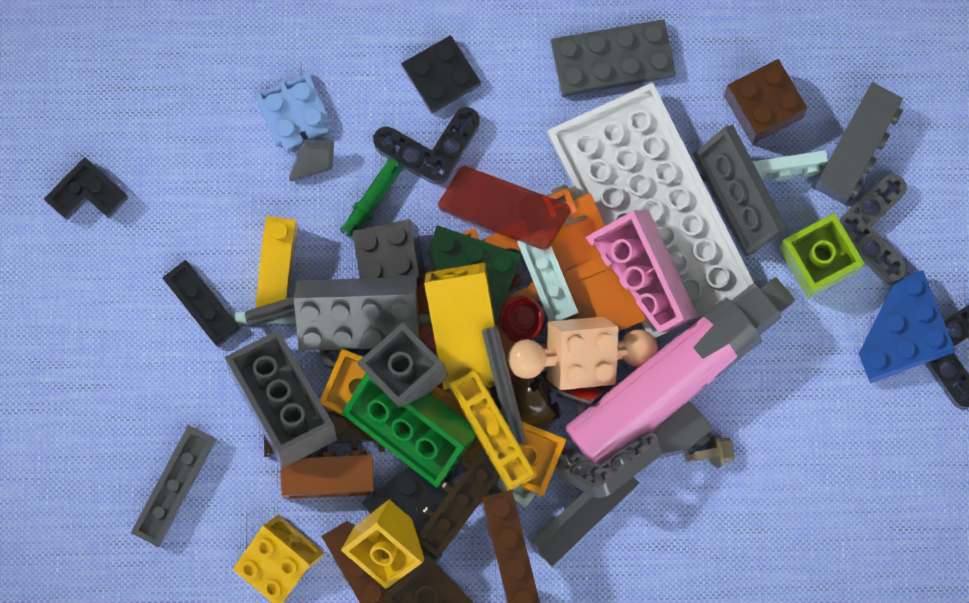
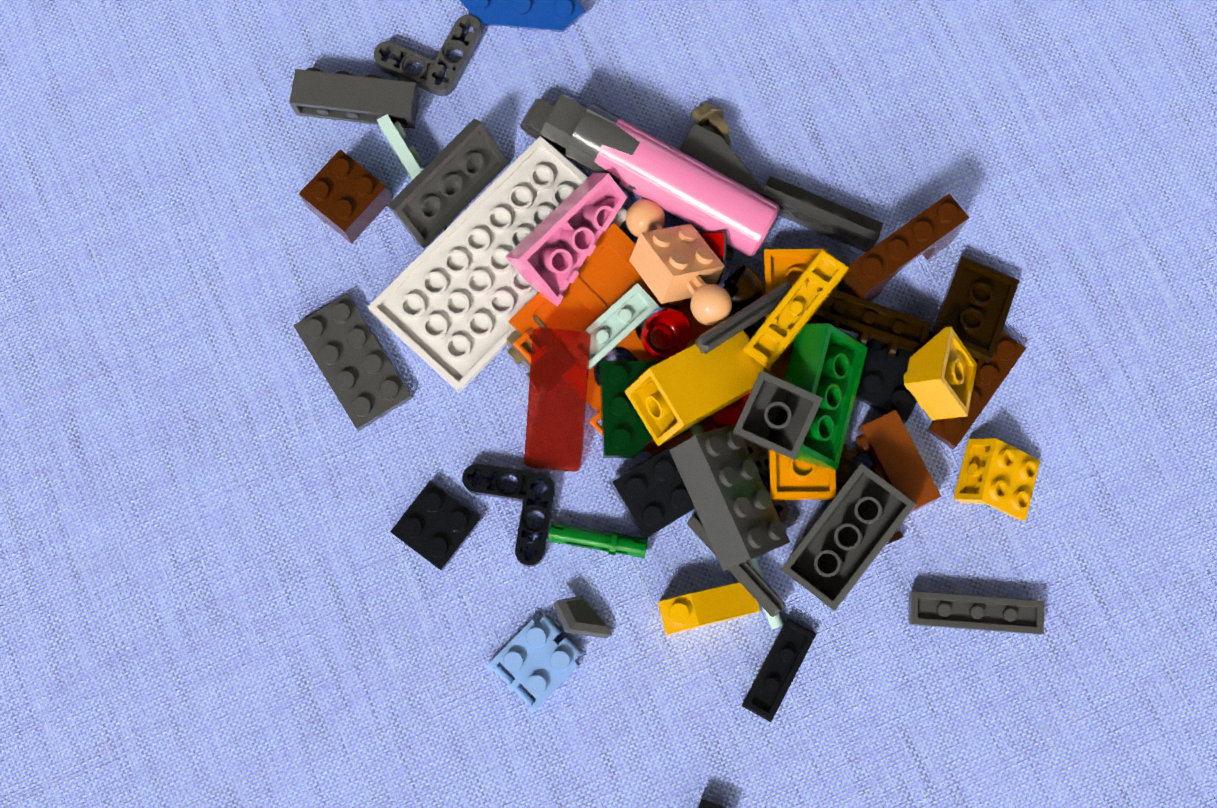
camera: 110 degrees left, 0 degrees up
(611, 473) = (782, 192): dark grey beam -> none
(821, 255) = (483, 88): lime brick -> none

